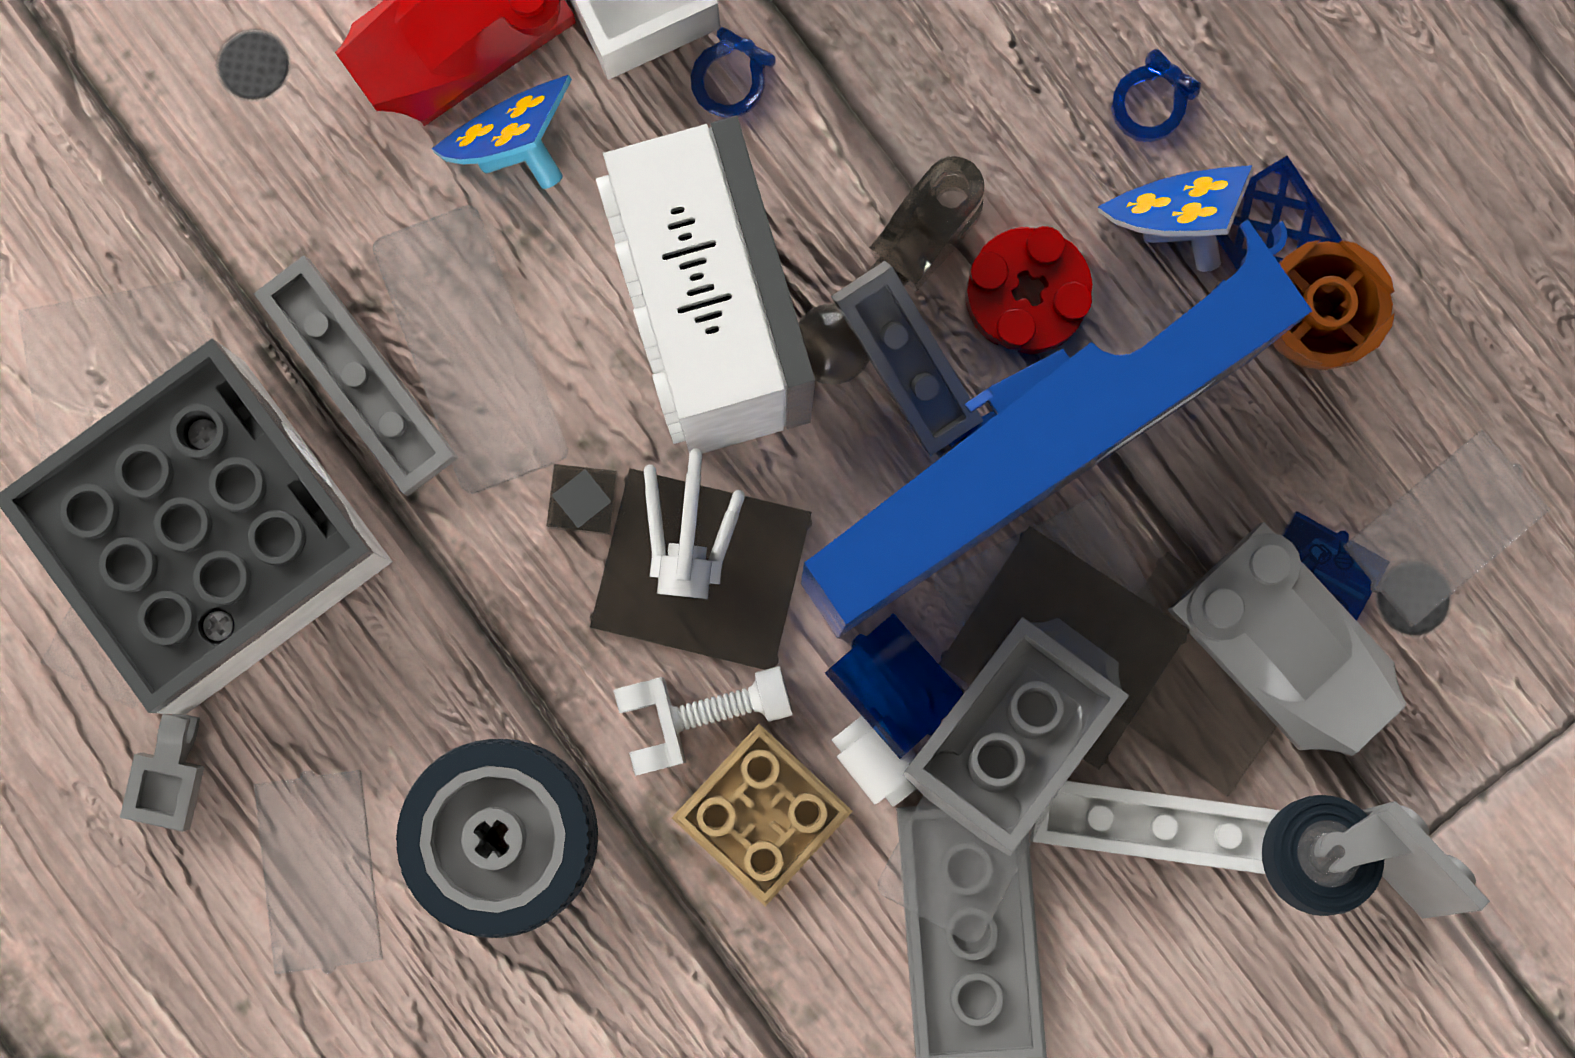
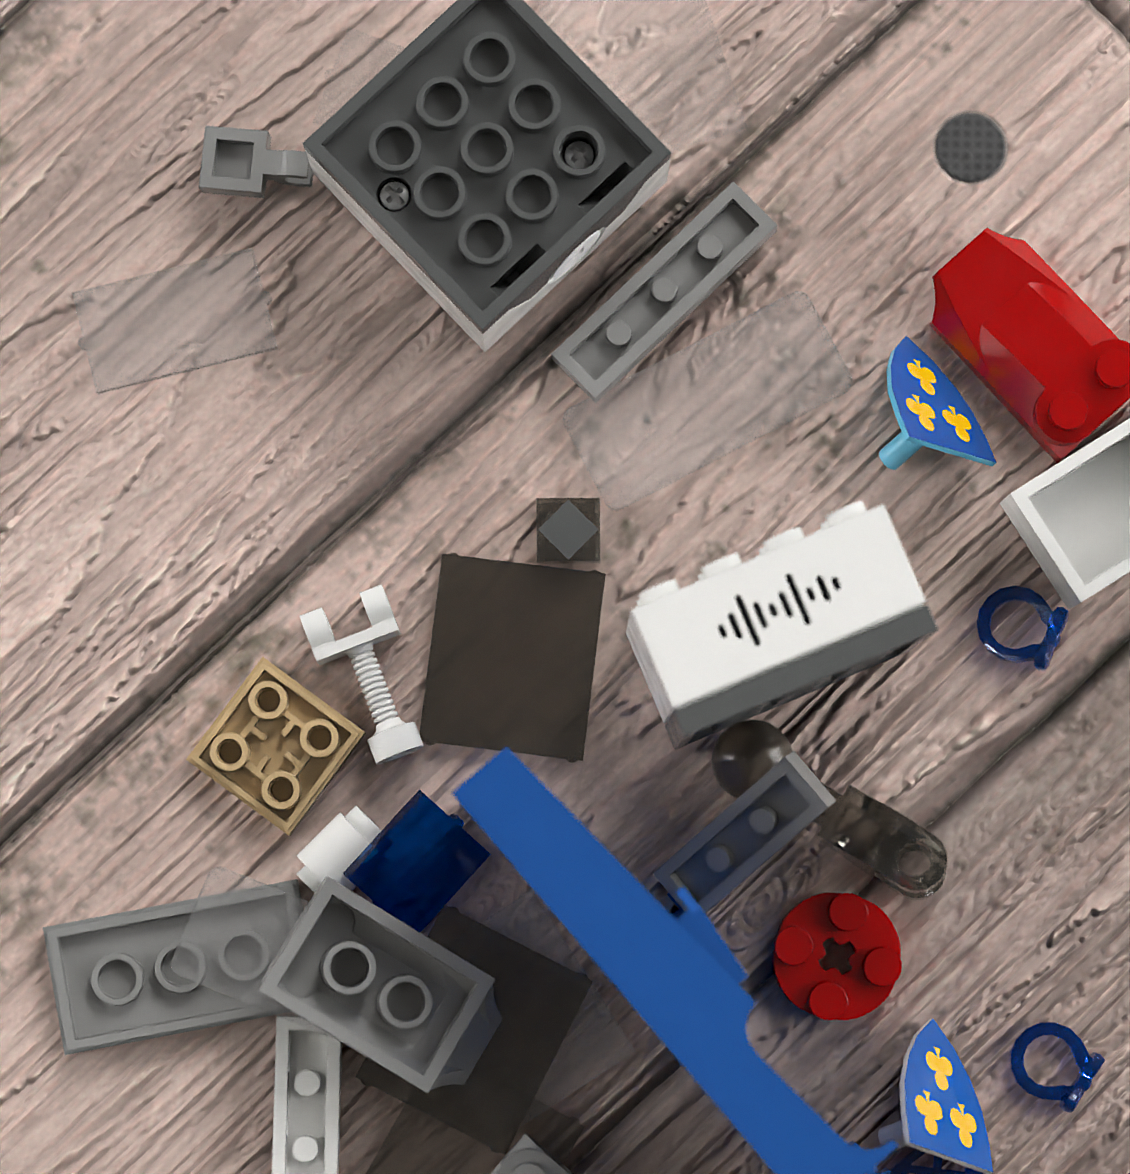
camera: 85 degrees right, 0 degrees up
(449, 849) = (195, 451): wheel -> none
(685, 568) = (508, 639): white plant -> none

